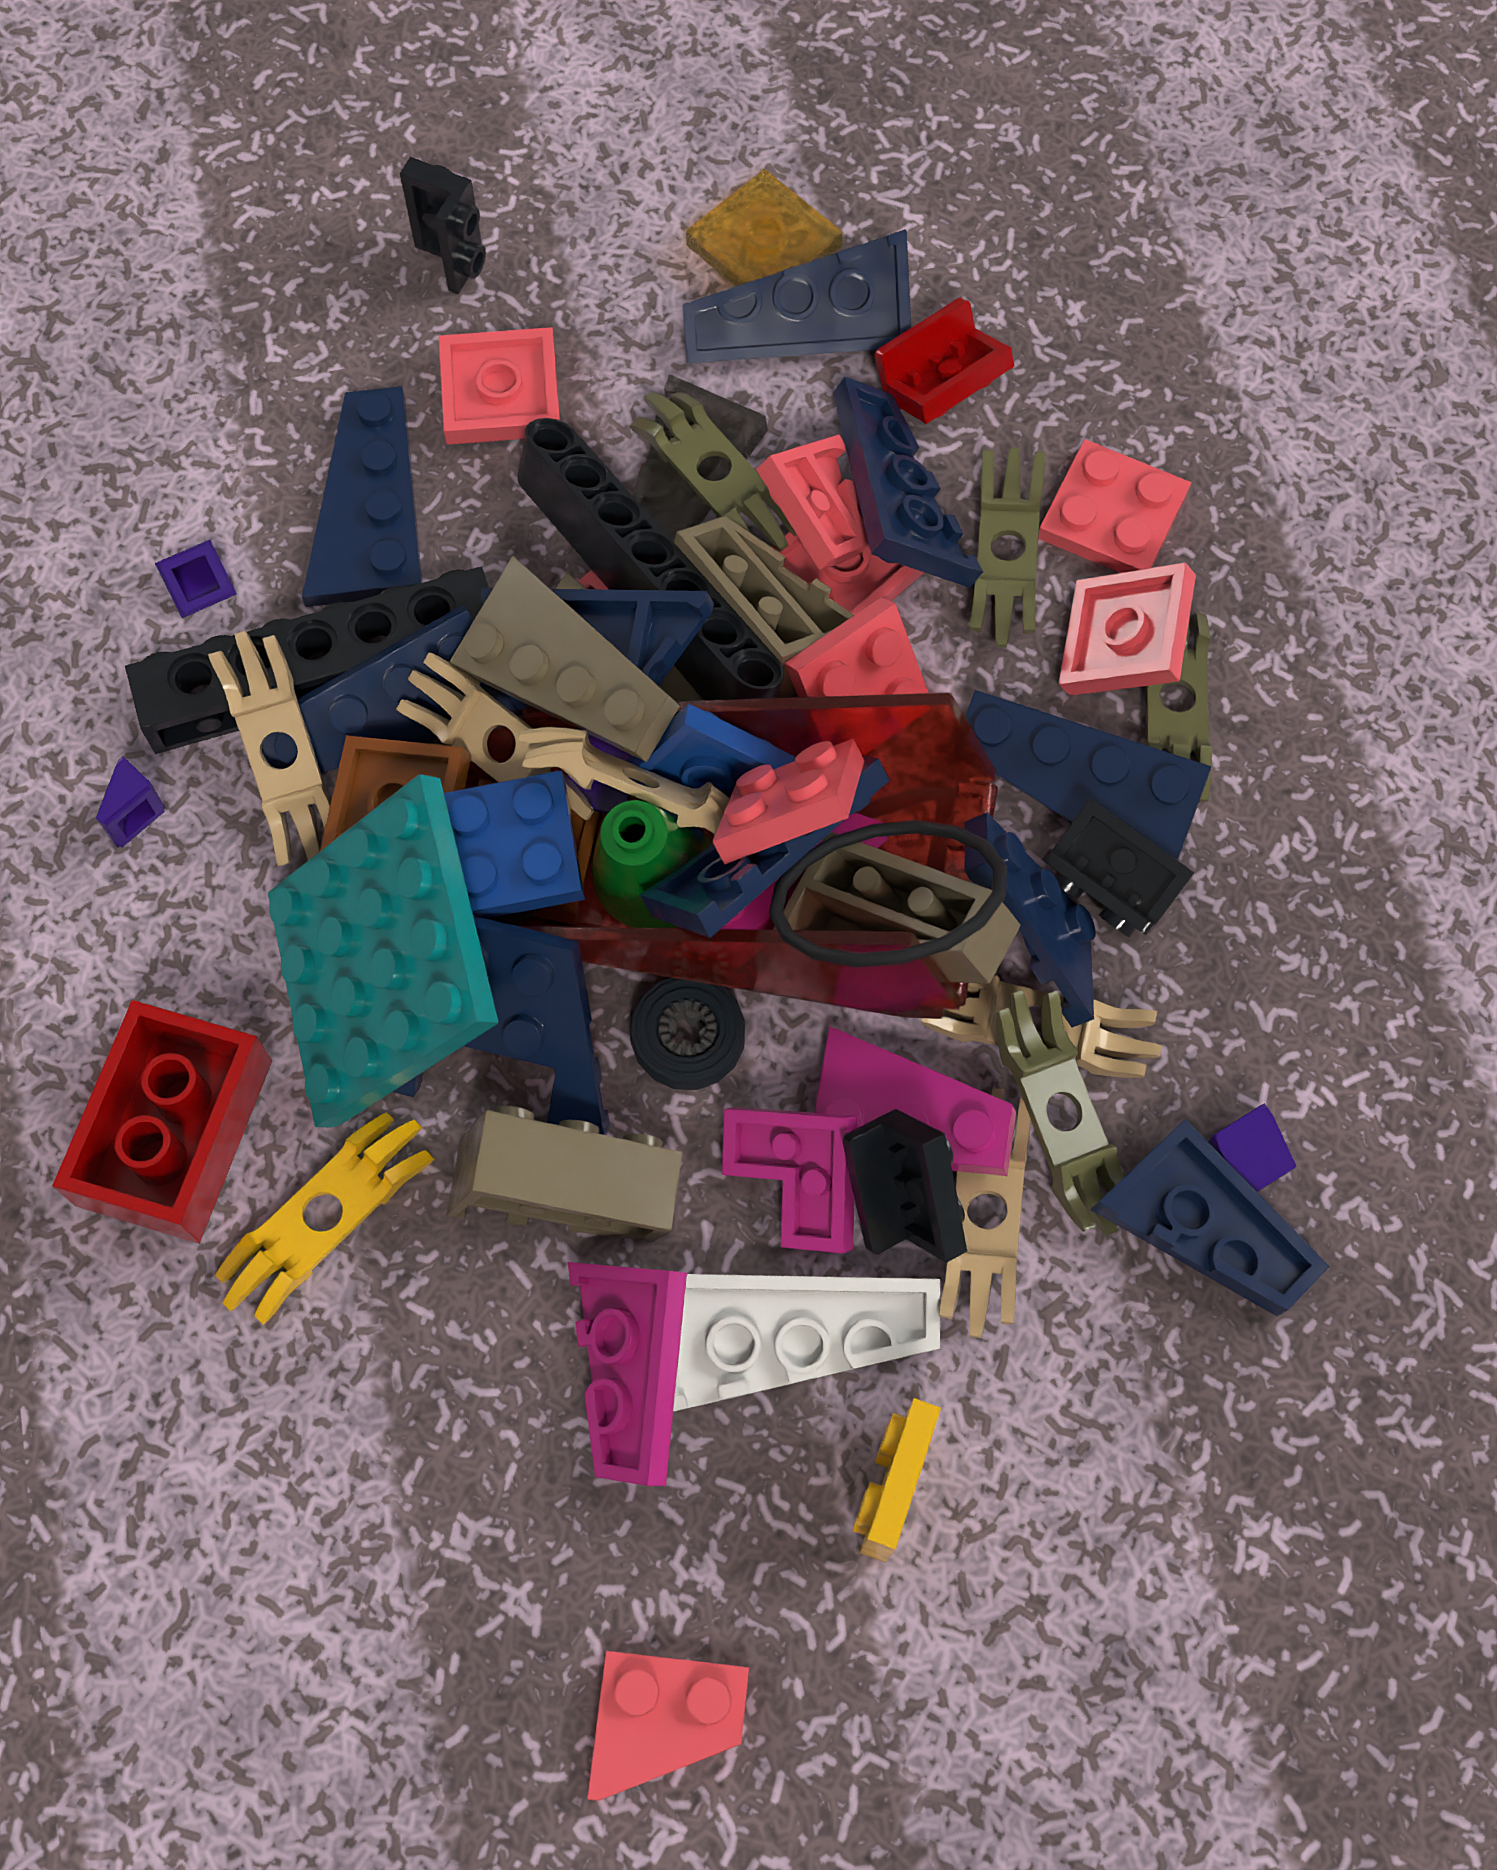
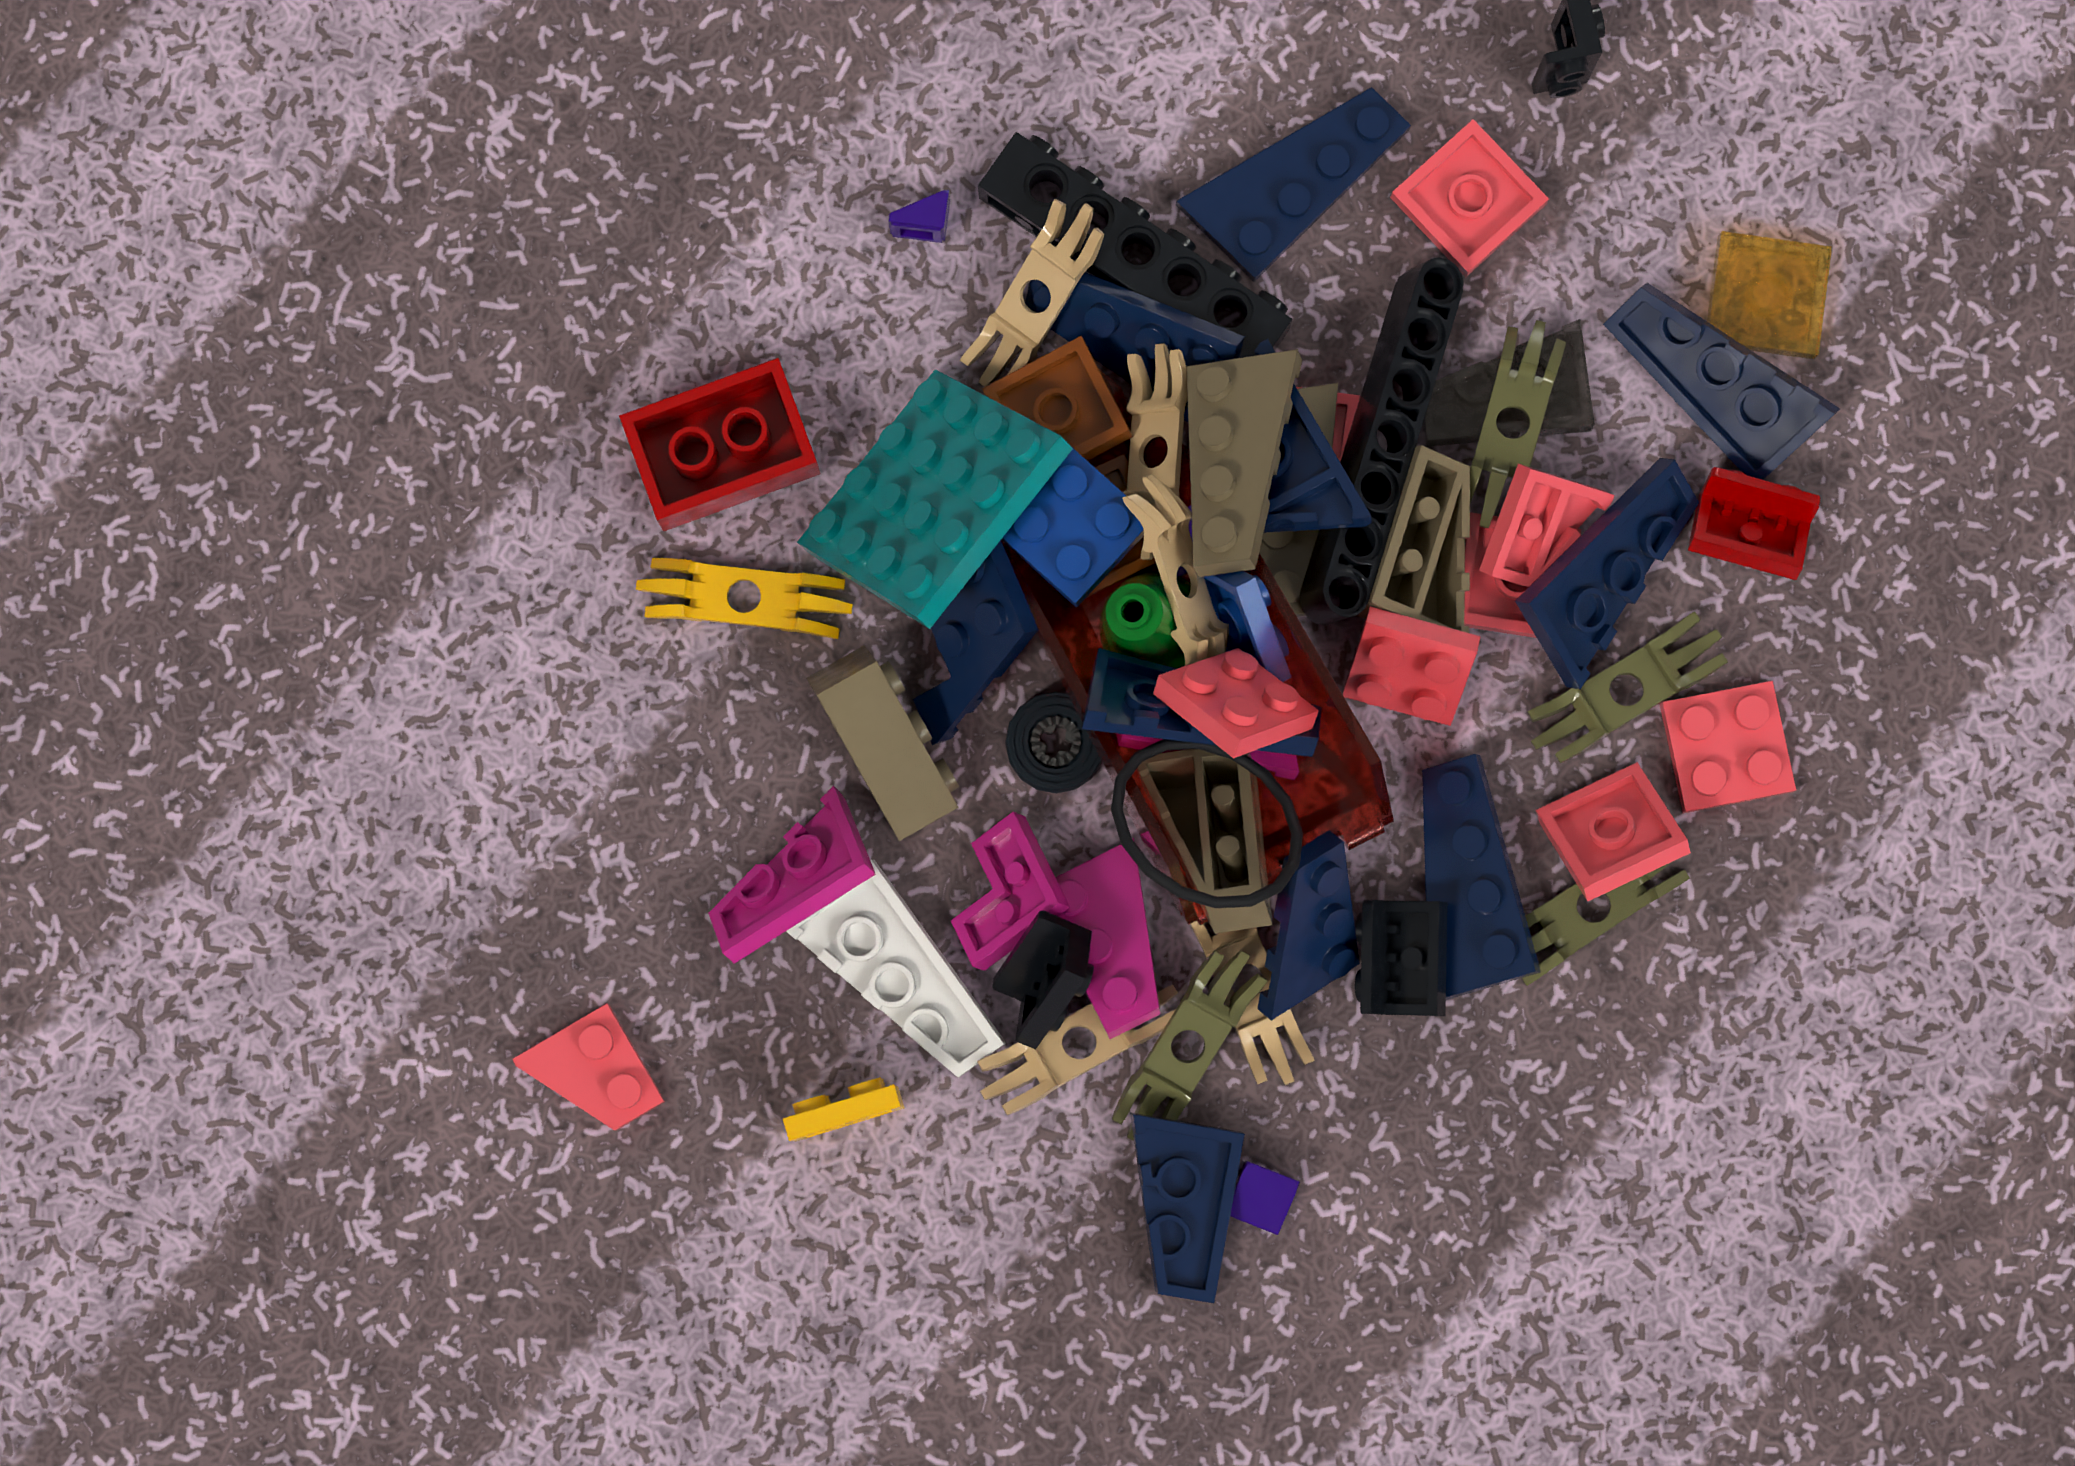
camera: 55 degrees right, 15 degrees up
(195, 578) = (1134, 107): dark purple slope -> none

